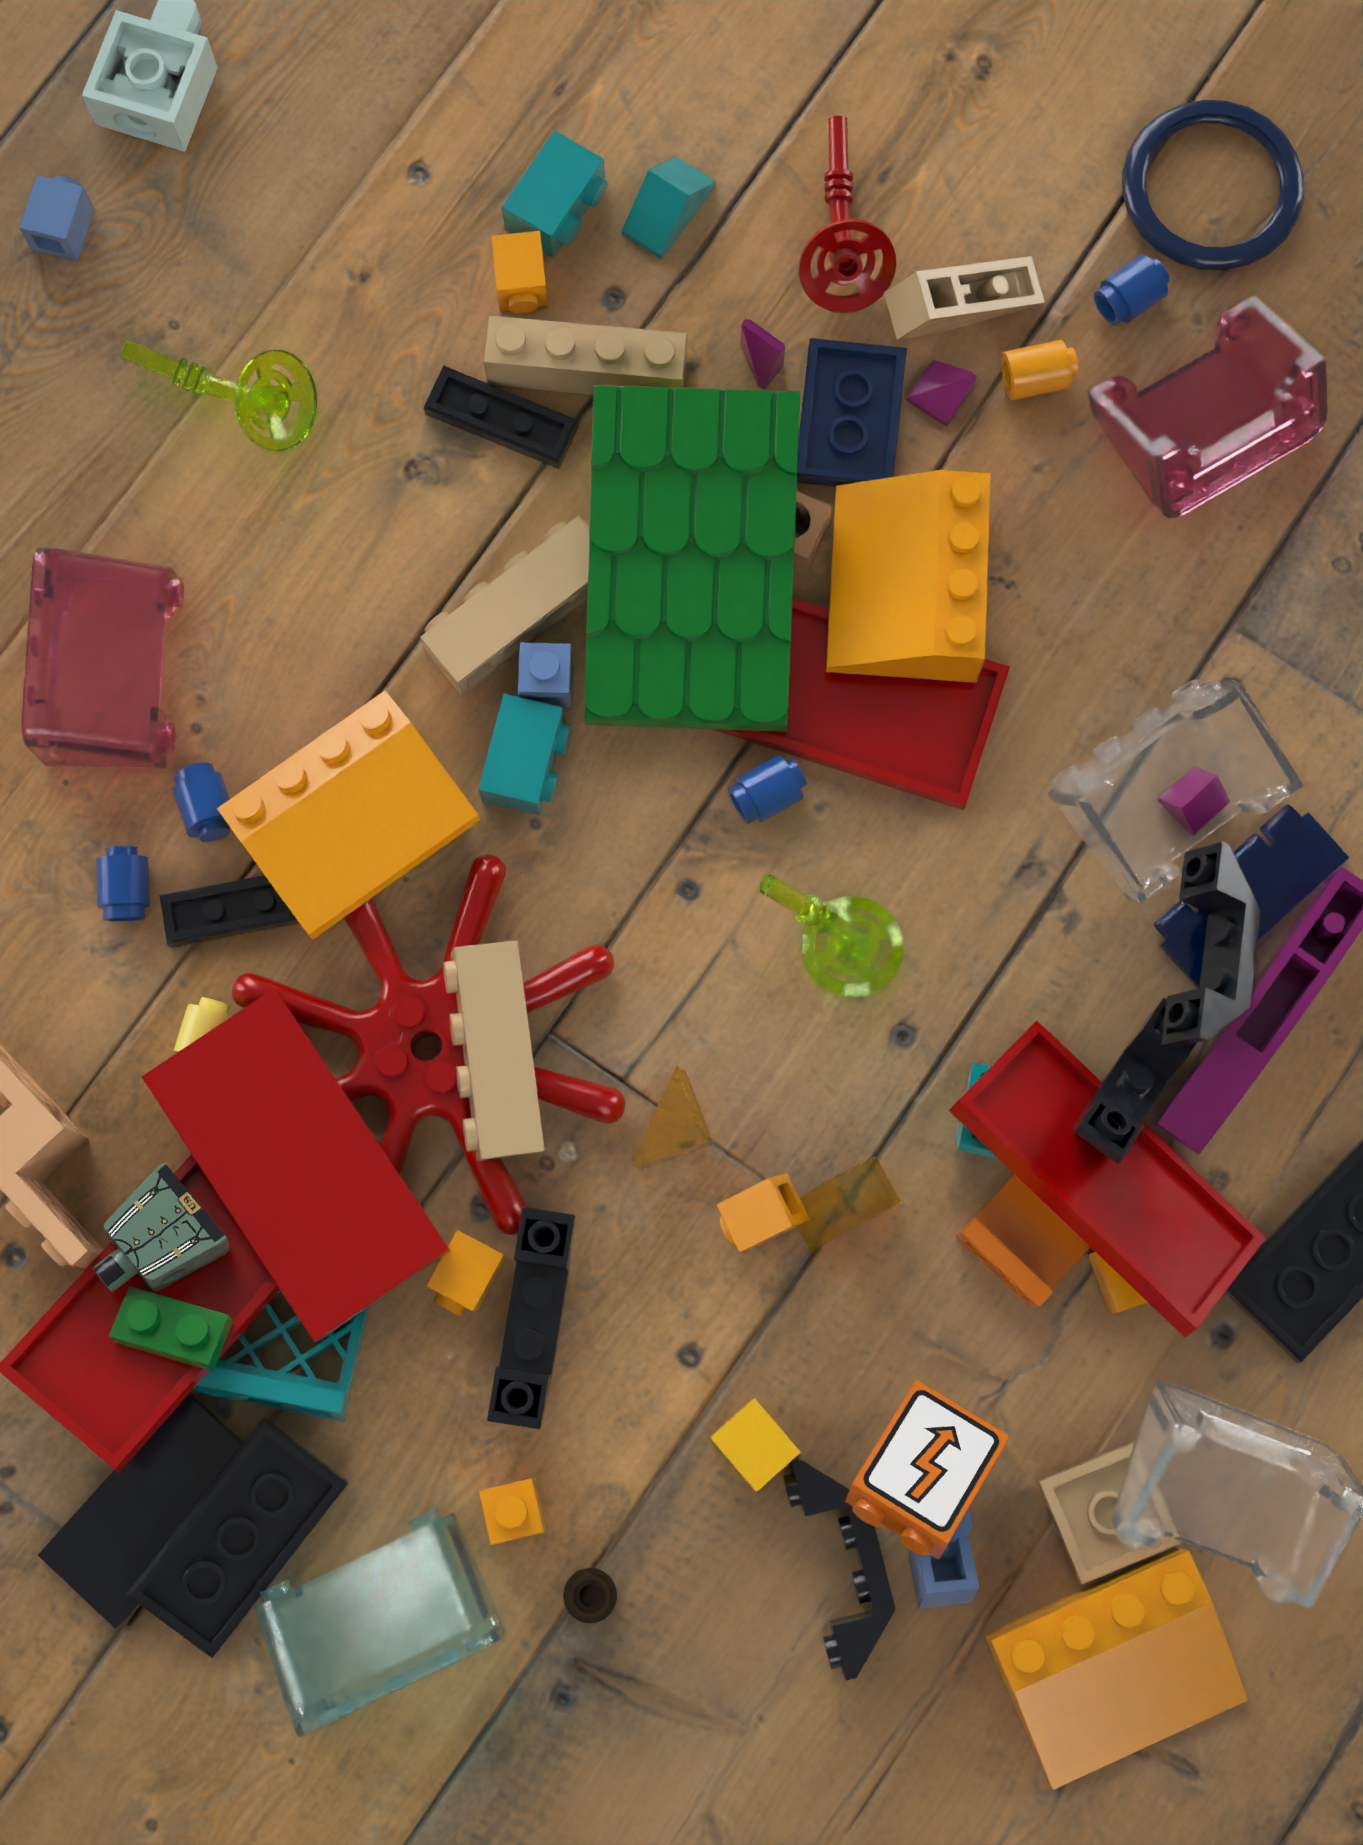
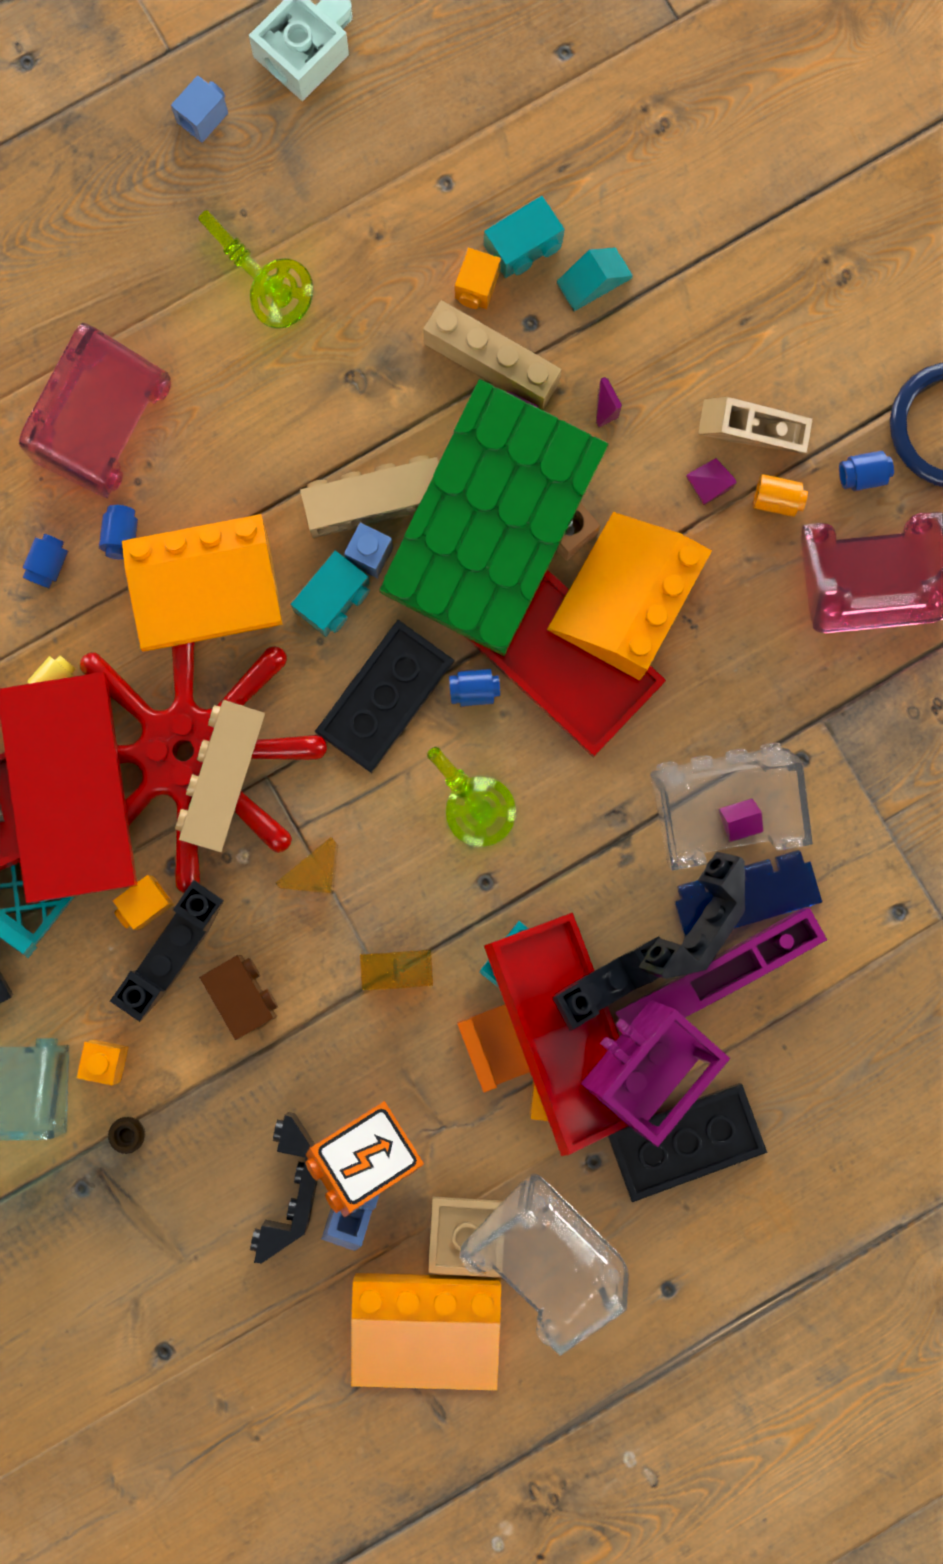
camera: 20 degrees right, 5 degrees up
(223, 911) = (96, 605): black tile -> none
(501, 417) = (421, 368): black tile -> none
(654, 1335) = (239, 996): none -> reddish brown brick
(655, 856) = (384, 696): none -> black tile
(755, 1444) = (268, 1092): yellow piece -> none
(761, 1212) = (341, 952): light orange brick -> none
(836, 238) = (691, 358): red dish -> none
(850, 412) = (645, 468): dark blue tile -> none
(1238, 1164) = (649, 1065): none -> magenta piece

